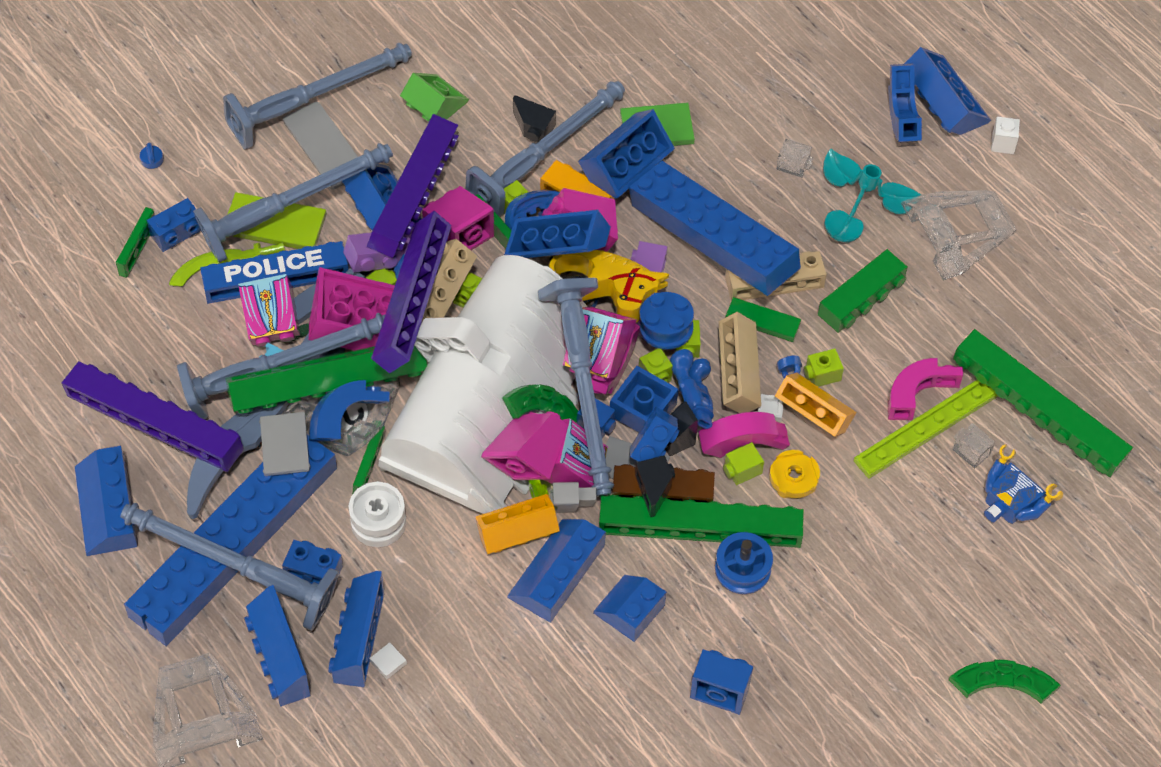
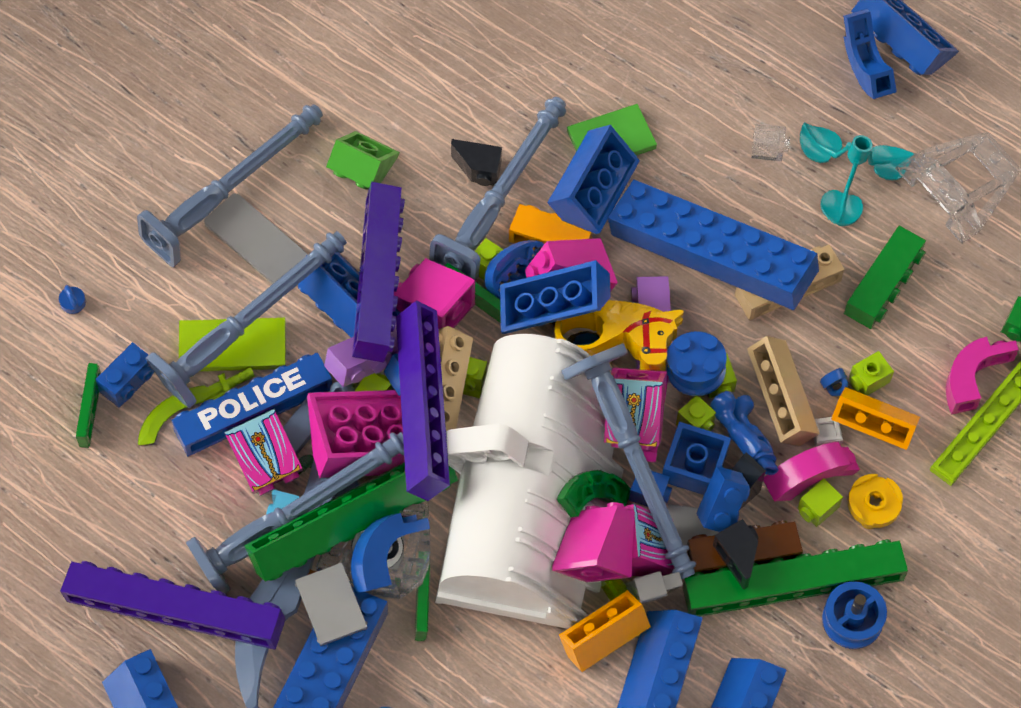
camera: 15 degrees left, 5 degrees up
(377, 514) = (448, 641): white wheel -> none
(766, 319) = (796, 333): green tile -> none
(1005, 135) = (980, 66): white brick -> none

